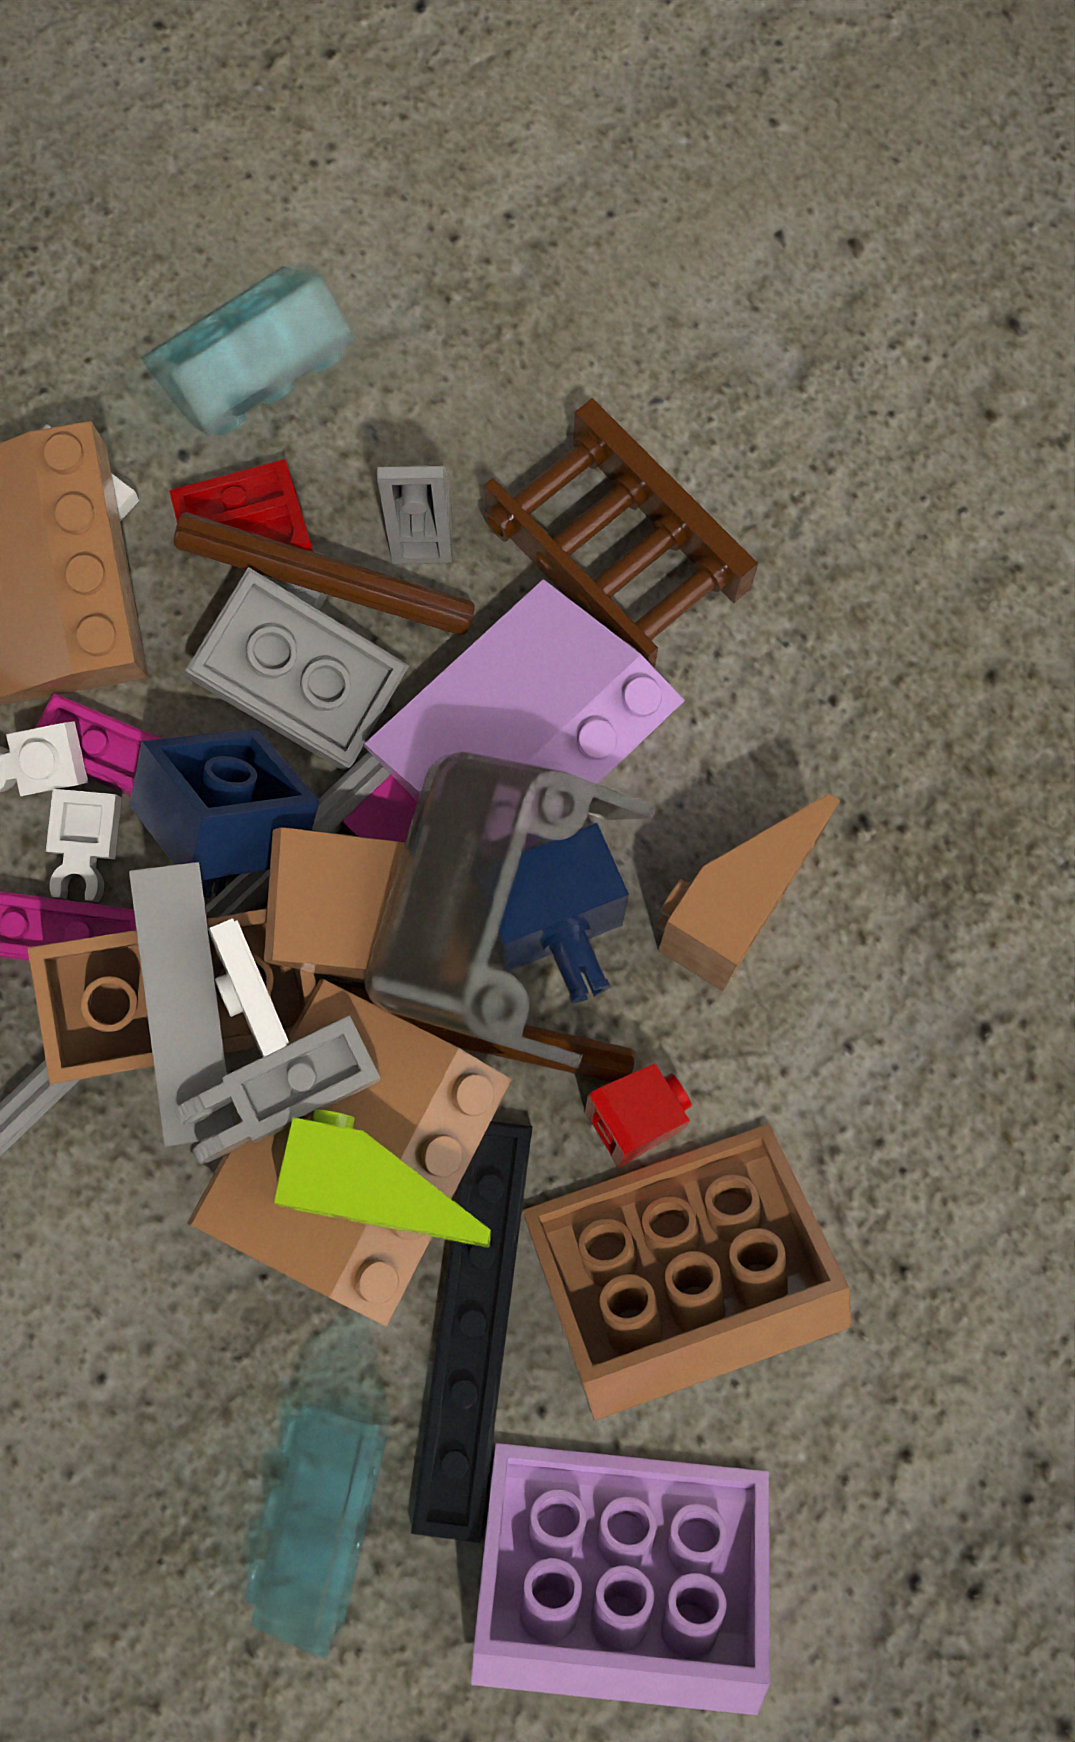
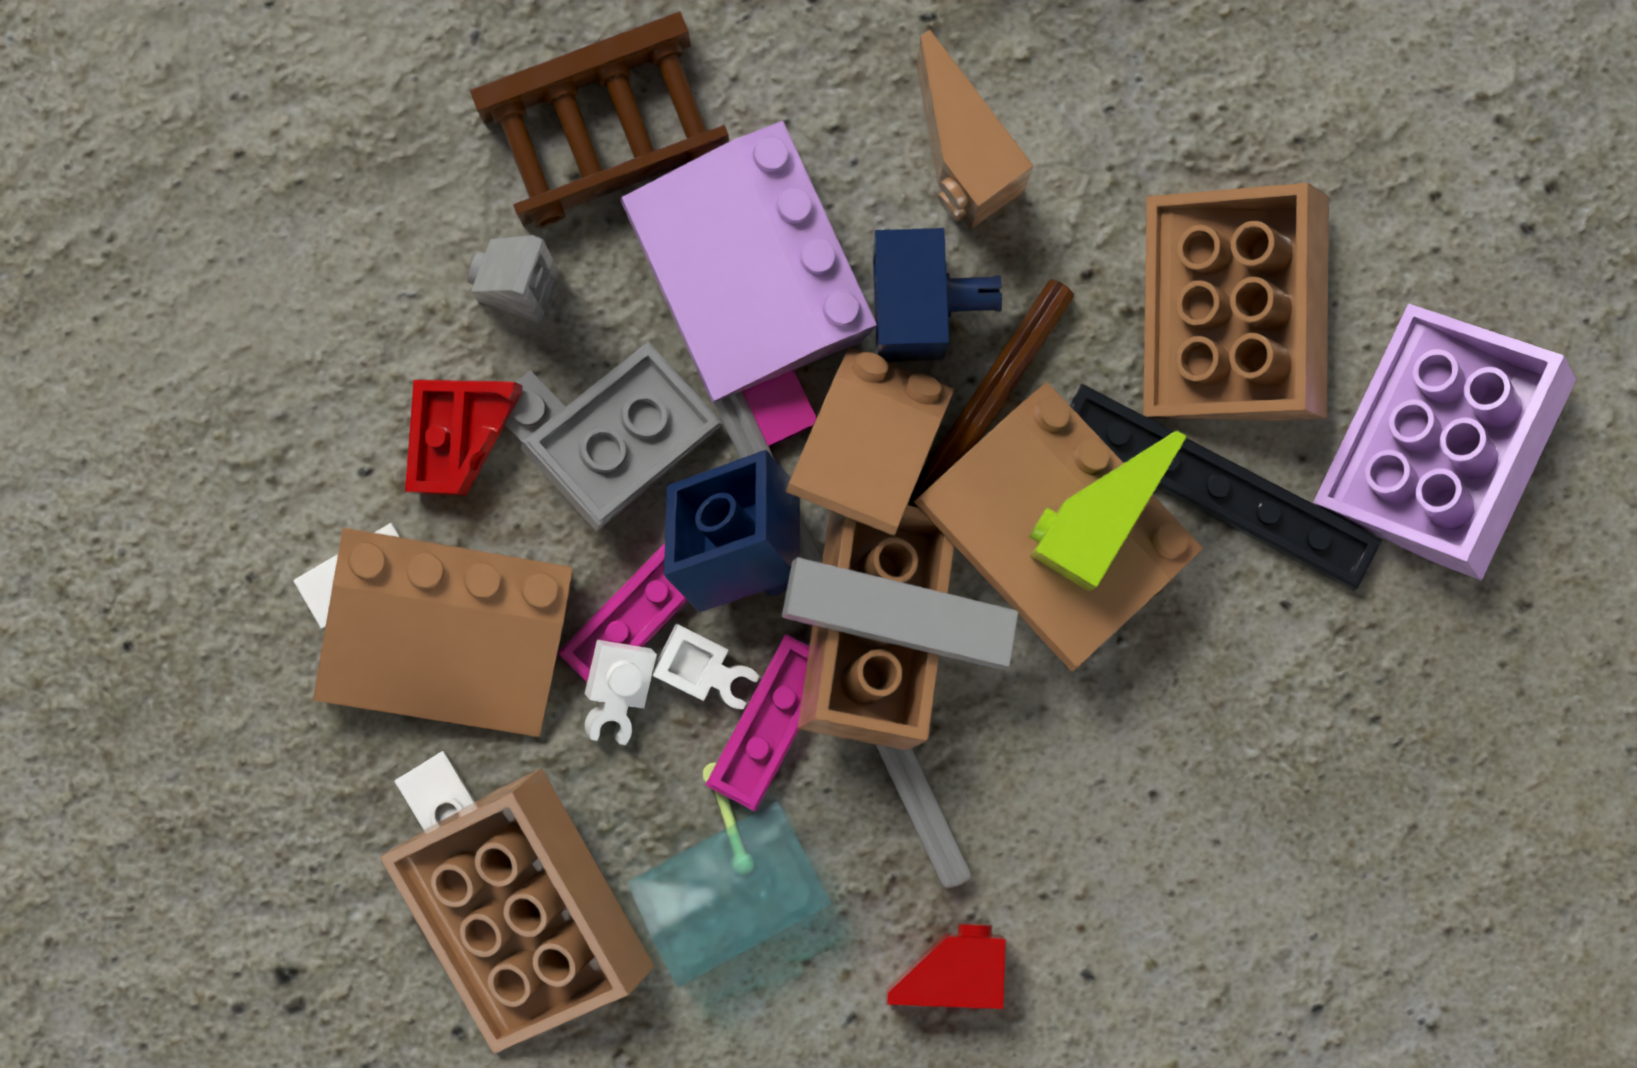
camera: 70 degrees left, 10 degrees up
(244, 988) = (910, 558): white plate -> none
(250, 349) = (288, 375): clear light blue slope -> none
(284, 1086) = (1002, 553): light grey hinge -> none
(317, 1526) = (1328, 651): clear light blue slope -> none
(323, 574) = (544, 382): reddish brown axle -> none
(456, 886) = (894, 356): clear smoke windscreen -> none
(638, 1112) = (1108, 294): red slope -> none

